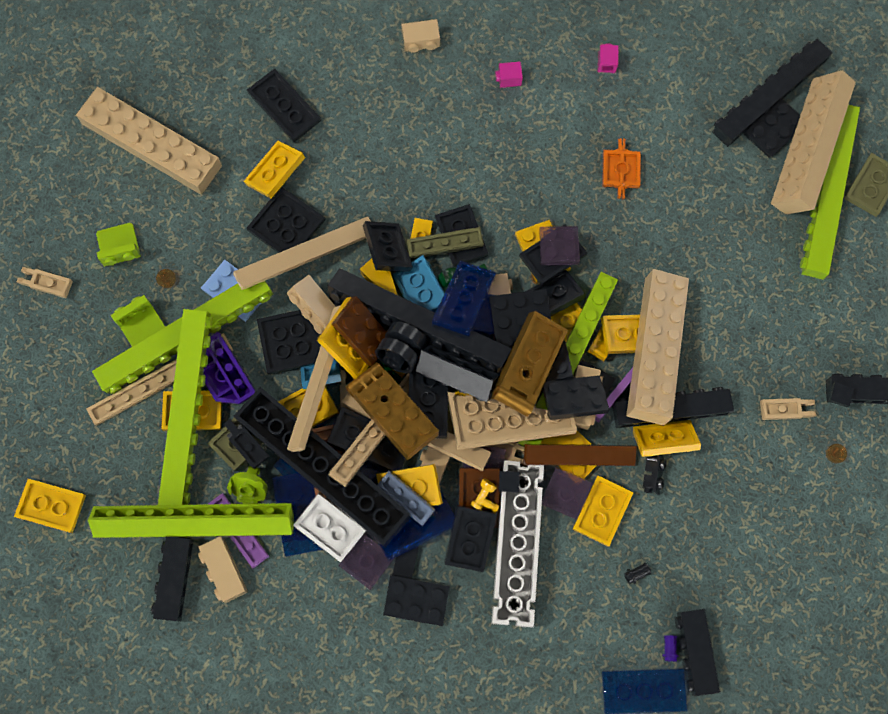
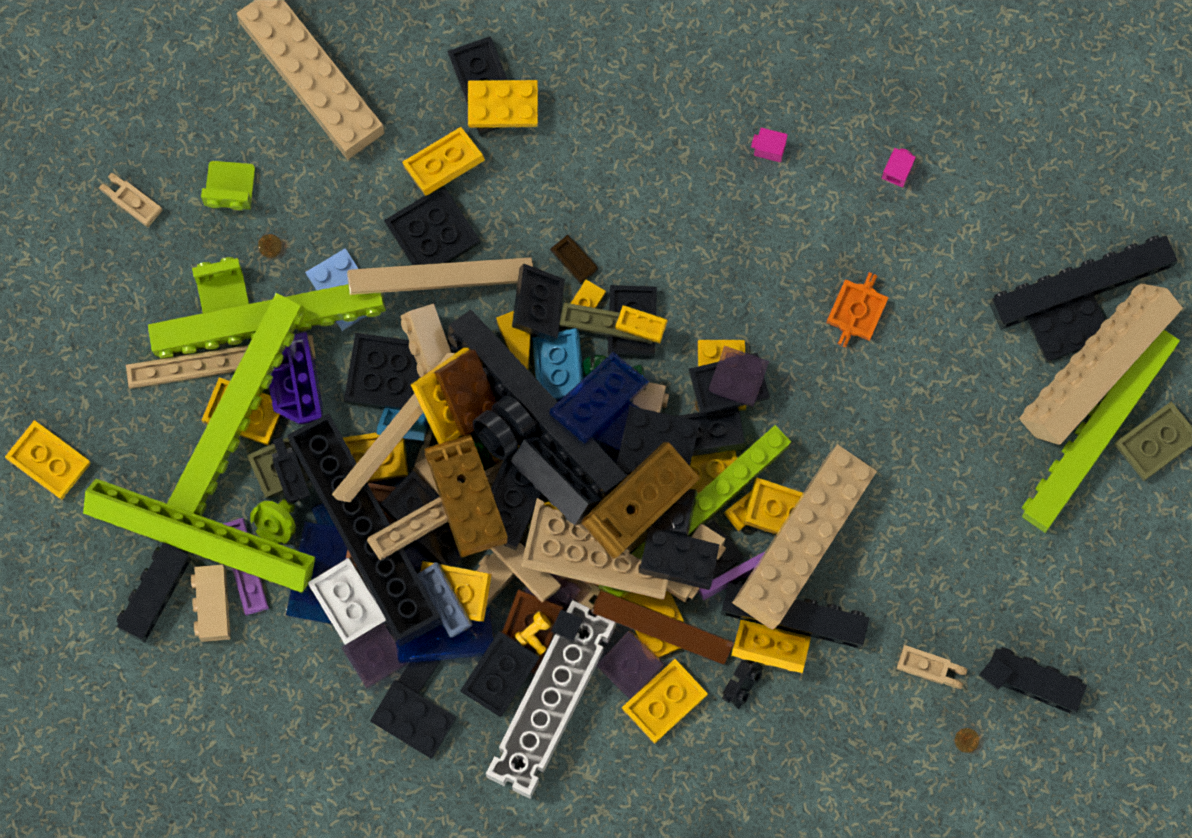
camera: 25 degrees right, 0 degrees up
(303, 112) = (503, 103): none -> yellow plate
(399, 206) = (574, 259): none -> dark brown tile
(421, 35) = (682, 57): tan brick -> none
(471, 233) = (641, 324): none -> yellow plate
(637, 573) = (678, 785): black pin -> none

